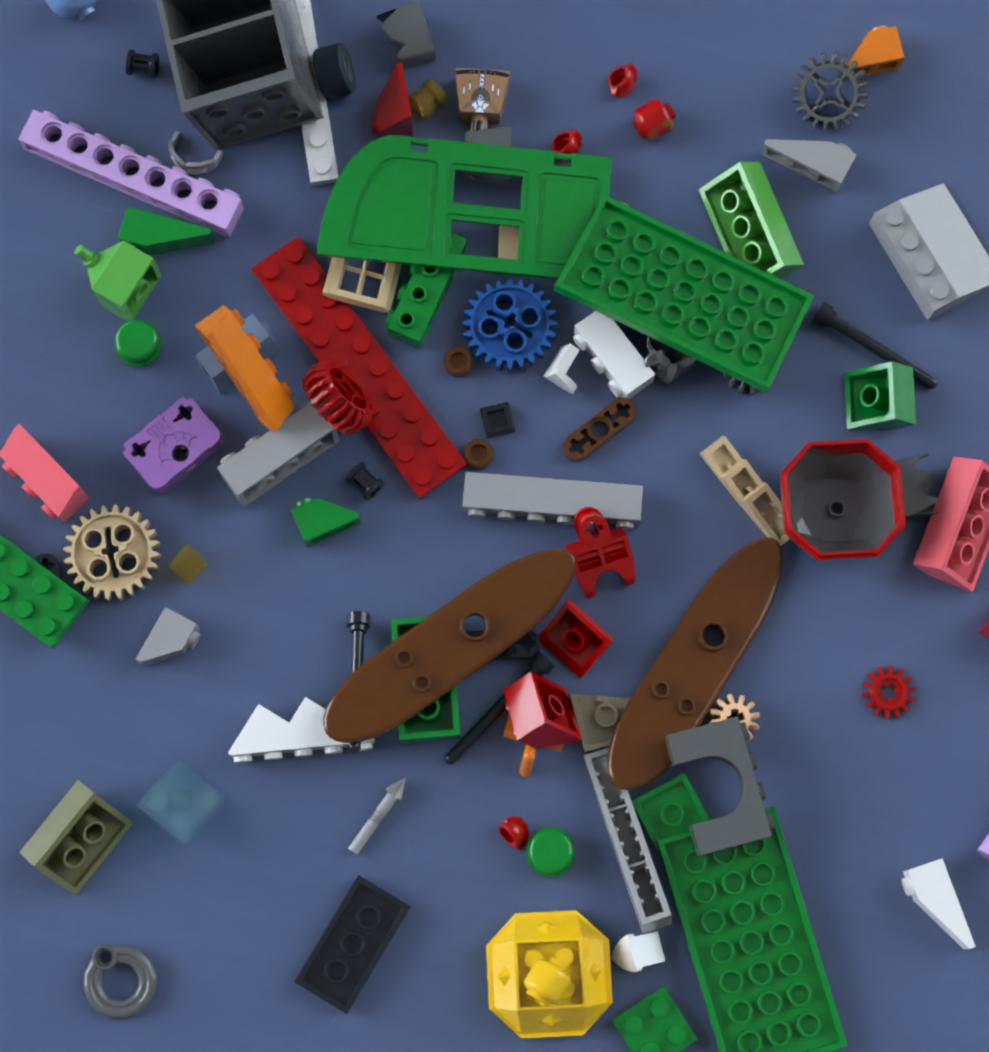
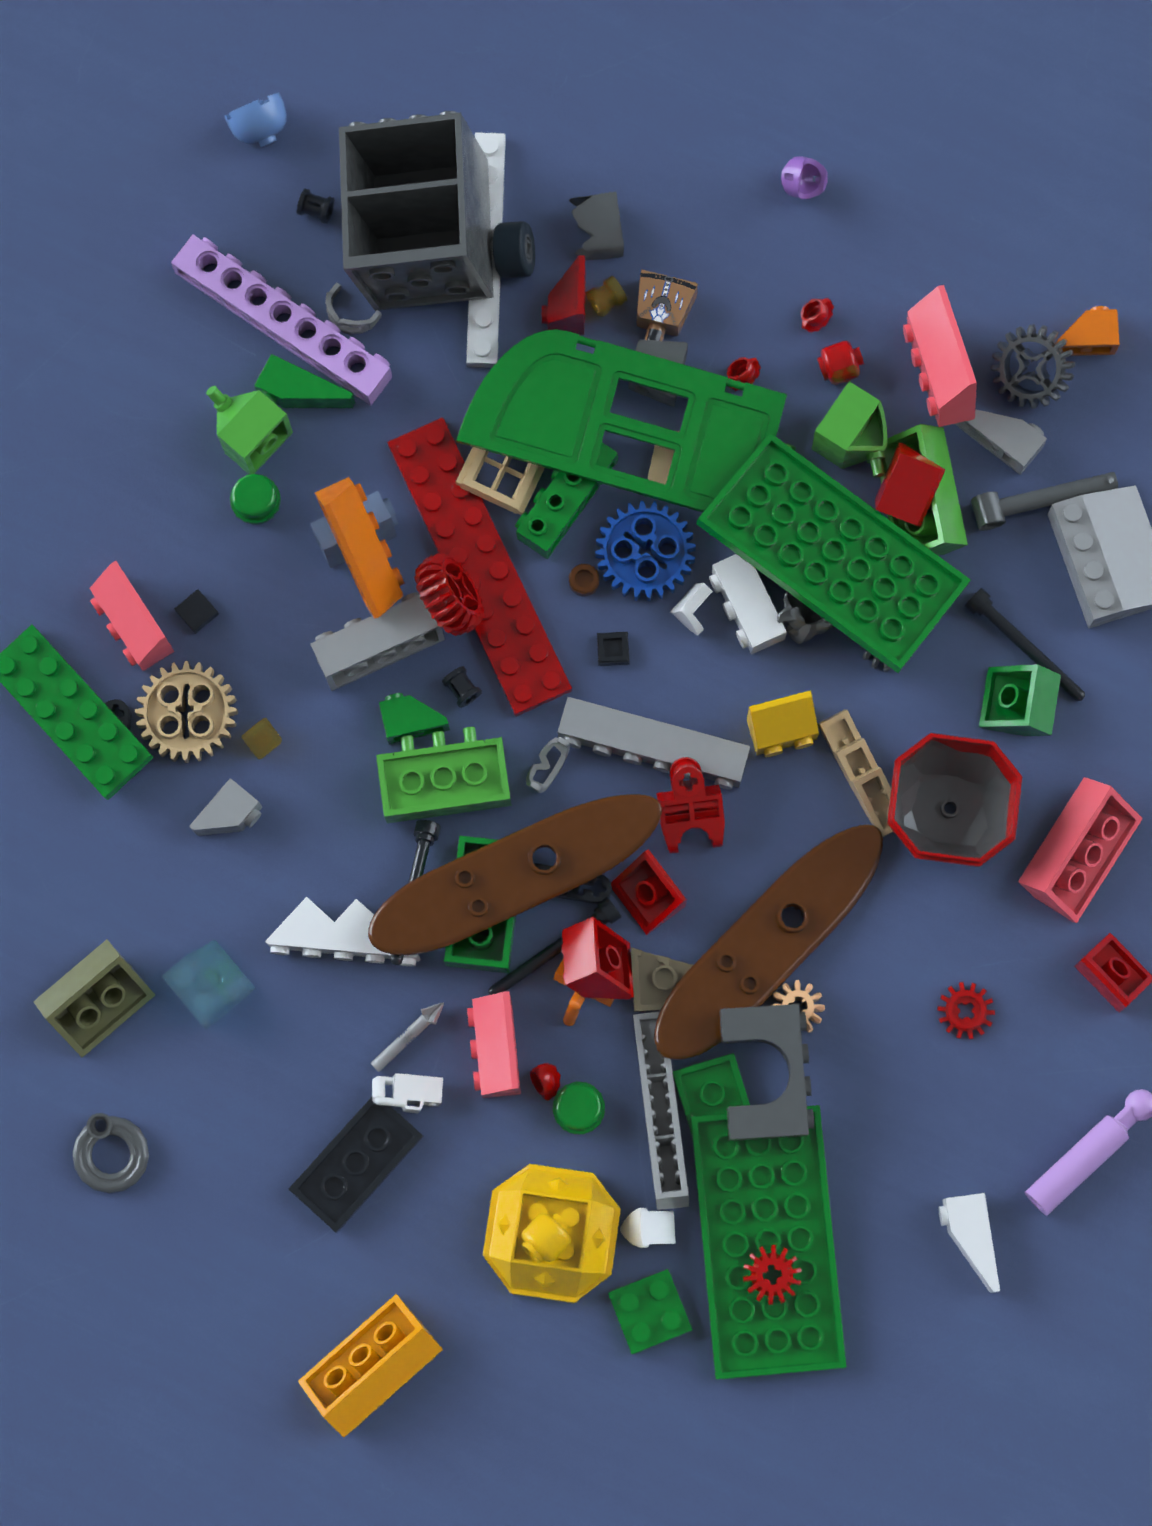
camera: 15 degrees right, 0 degrees up
(103, 457) = (196, 611): none -> black tile
(168, 437) = (268, 602): medium lavender axle -> none
(364, 568) = (443, 778): none -> bright green piece
(389, 866) = (408, 1090): none -> white piece
(461, 809) = (494, 1045): none -> coral slope
(469, 518) = (564, 747): none -> light grey helmet
(478, 454) = (586, 680): reddish brown tile -> none
(620, 422) = (693, 680): reddish brown beam -> none
(669, 459) = (783, 724): none -> yellow slope
(680, 179) = (853, 431): none -> bright green piece
(740, 220) = (908, 486): none -> red slope
(747, 98) = (941, 359): none -> coral slope
(767, 961) = (761, 1266): none -> red gear
(819, 229) = (991, 510): none -> dark grey piece
(916, 487) = (1036, 803): dark grey piece -> none

